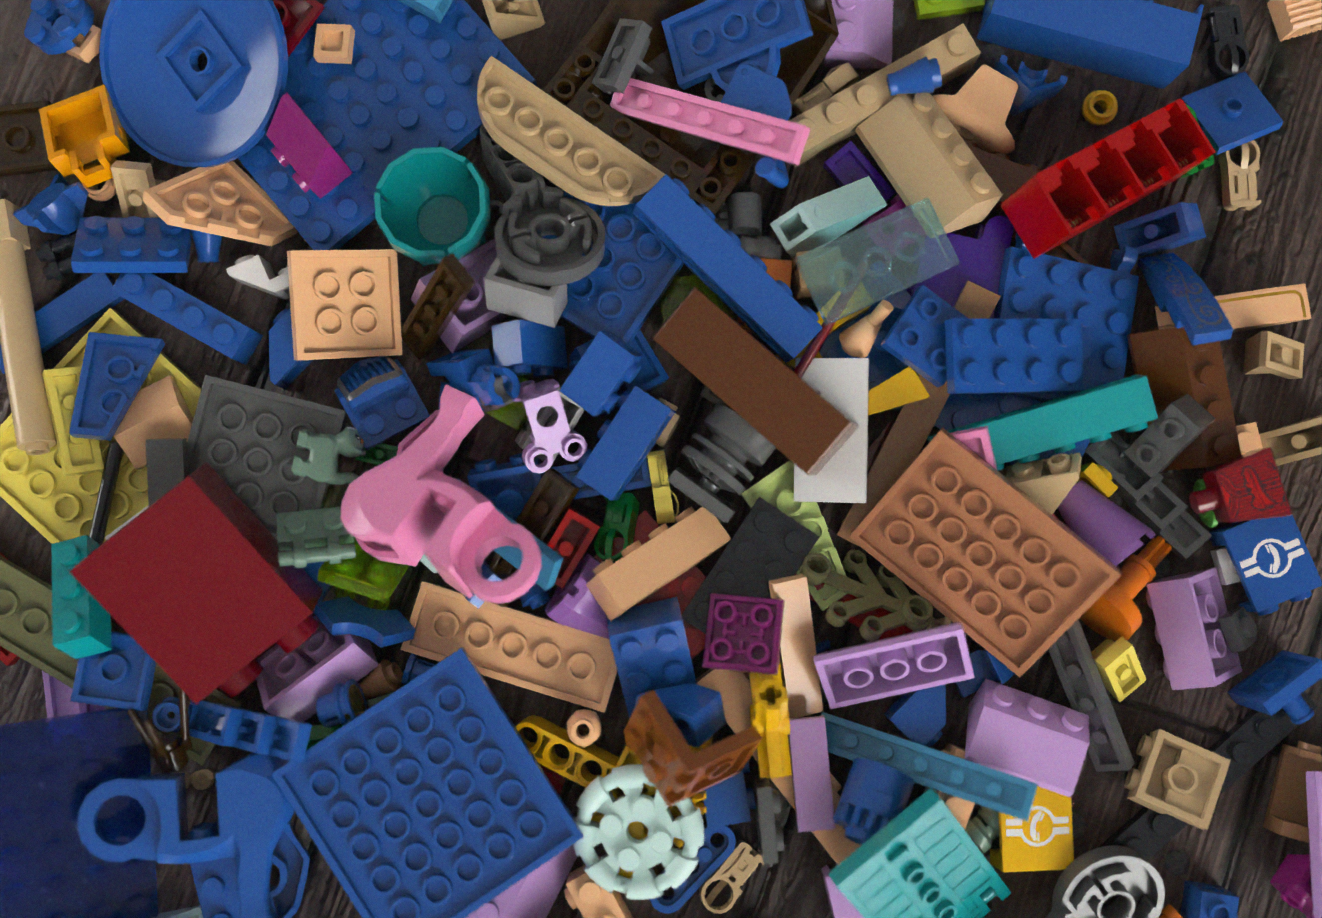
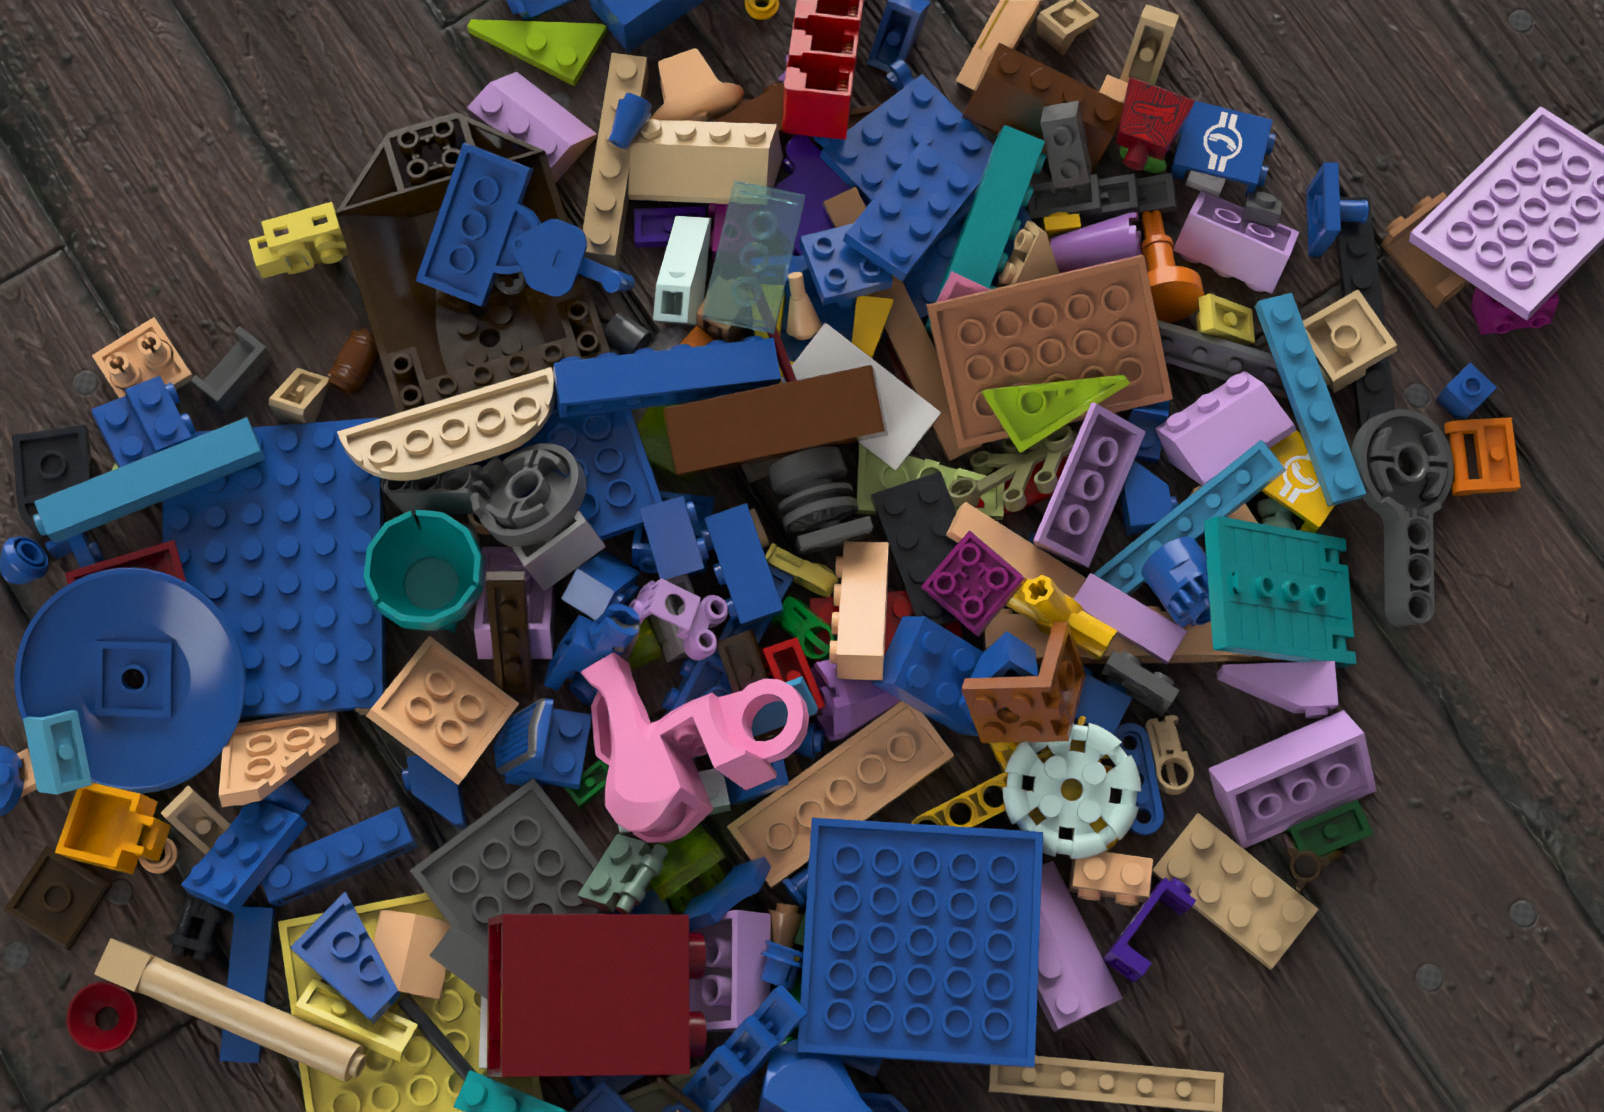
camera: 60 degrees left, 10 degrees down
(55, 208) = (151, 903): blue piece -> none
(102, 52) = (57, 752): none -> medium azure panel
(258, 274) = (353, 773): white slope -> none
(305, 149) = (289, 640): magenta slope -> none
(325, 454) = (558, 819): sand green animal -> none
(334, 43) = (212, 557): light nougat plate -> none
(565, 29) = (354, 362): none -> reddish brown head
(579, 732) = (953, 774): light nougat plant -> none
(624, 57) = (424, 331): dark grey panel -> none
(712, 120) = (533, 299): bright pink plate -> none
(835, 81) = (577, 192): tan piece -> none
(929, 581) = (1042, 408): none -> lime wing
(1031, 85) = (701, 37): blue slope -> none
(1105, 788) = (1310, 400): none -> dark azure plate
(1185, 298) = (965, 52): blue slope -> none

